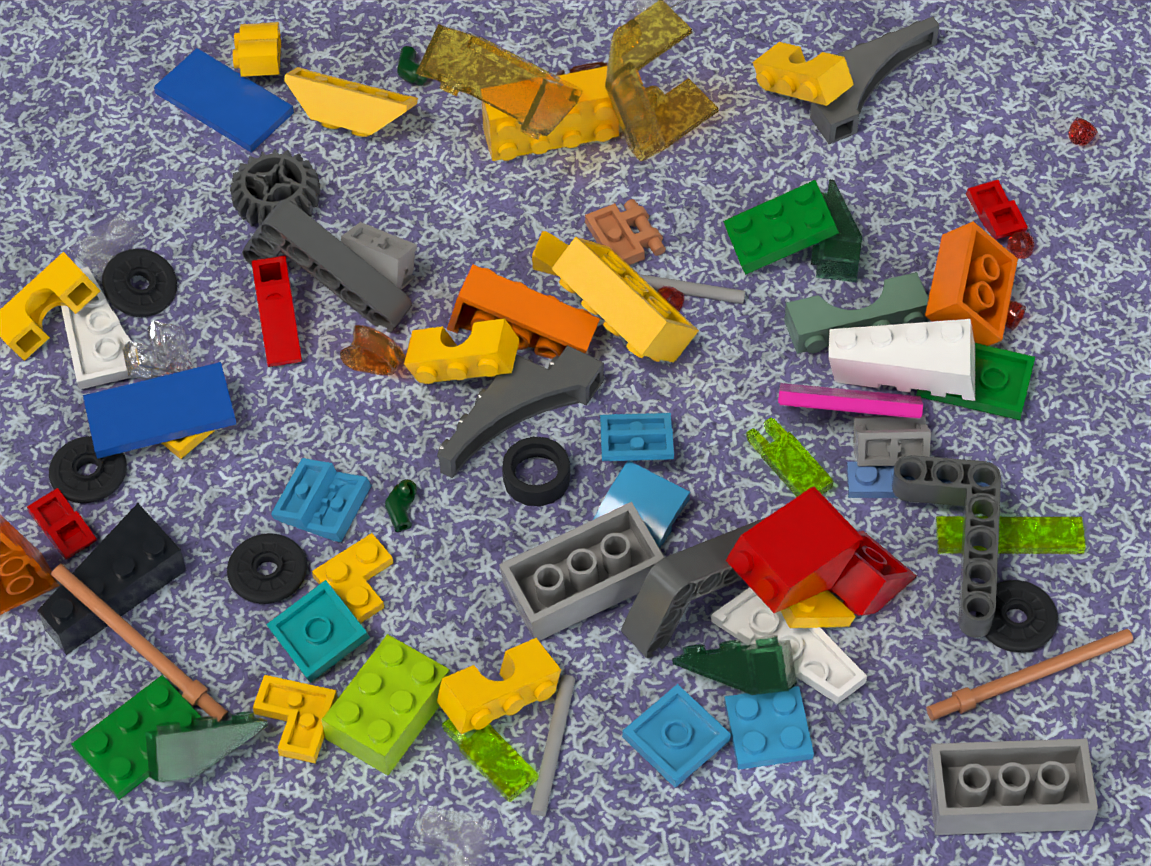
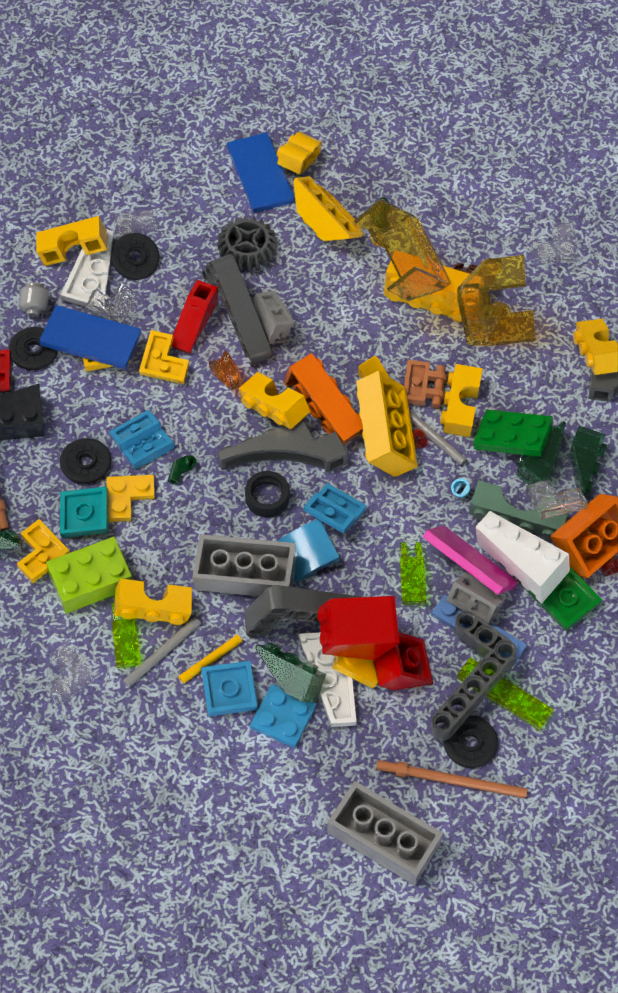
camera: 30 degrees right, 5 degrees up
(43, 407) = (33, 299): none -> light grey head
(275, 395) = (158, 363): none -> yellow plate
(621, 715) = (210, 658): none -> yellow bar
(695, 247) = (463, 383): none -> yellow arch
(759, 328) = (457, 485): none -> medium azure hinge
(881, 208) = (583, 457): none -> clear green slope
(895, 278) = (552, 504): none -> clear plate

